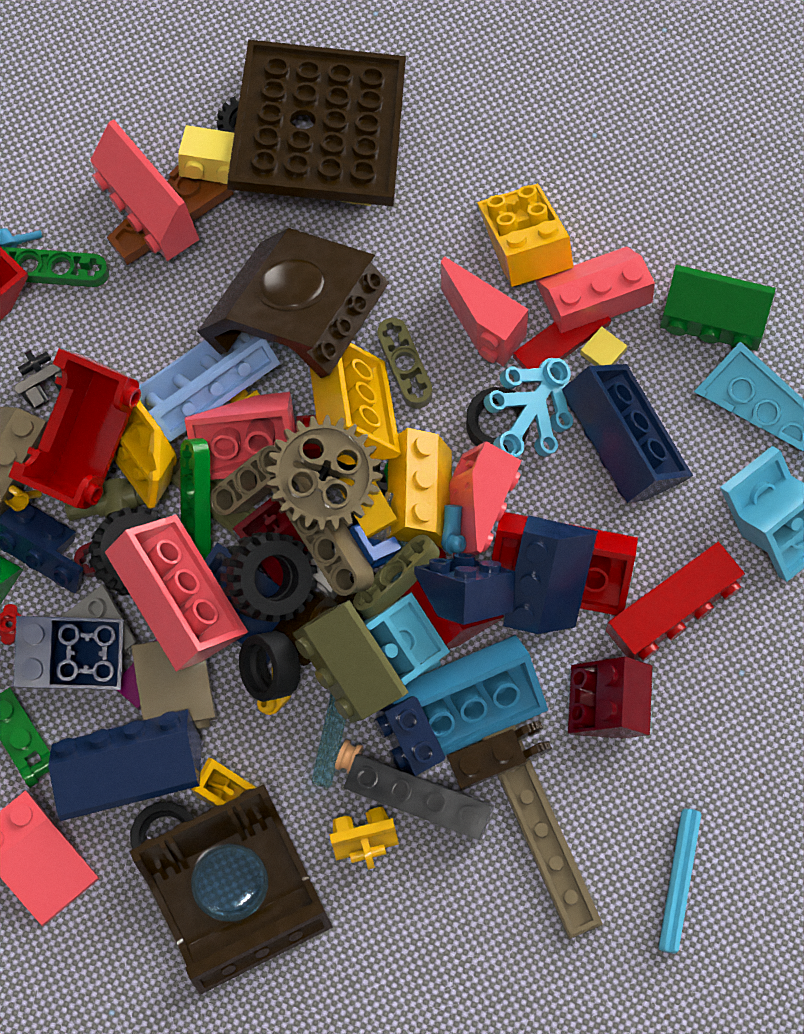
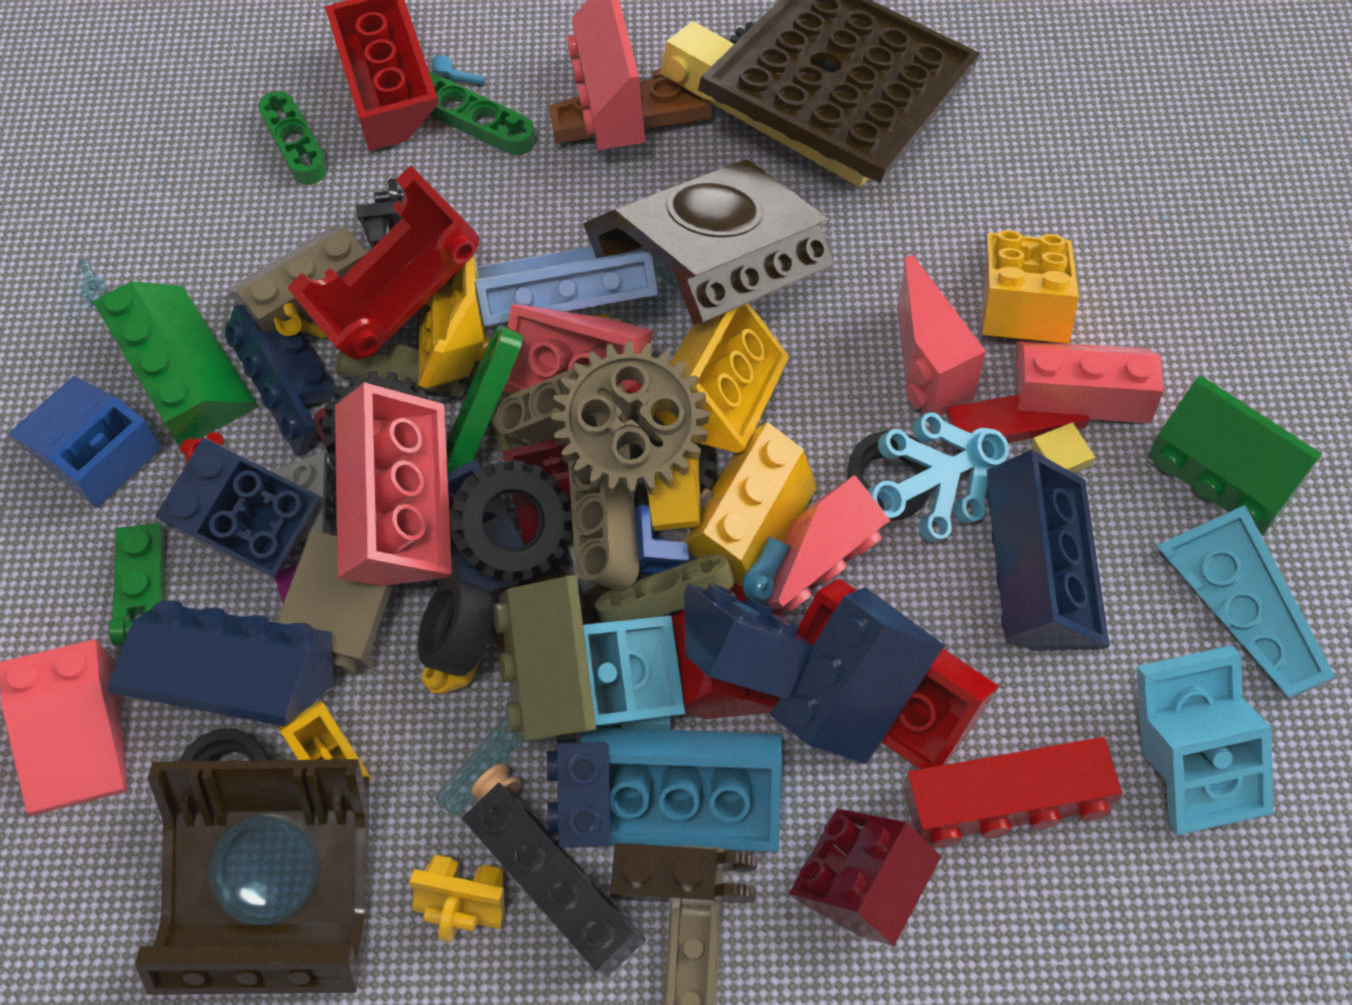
camera: 25 degrees right, 10 degrees down
(392, 354) = (821, 381): olive beam -> none

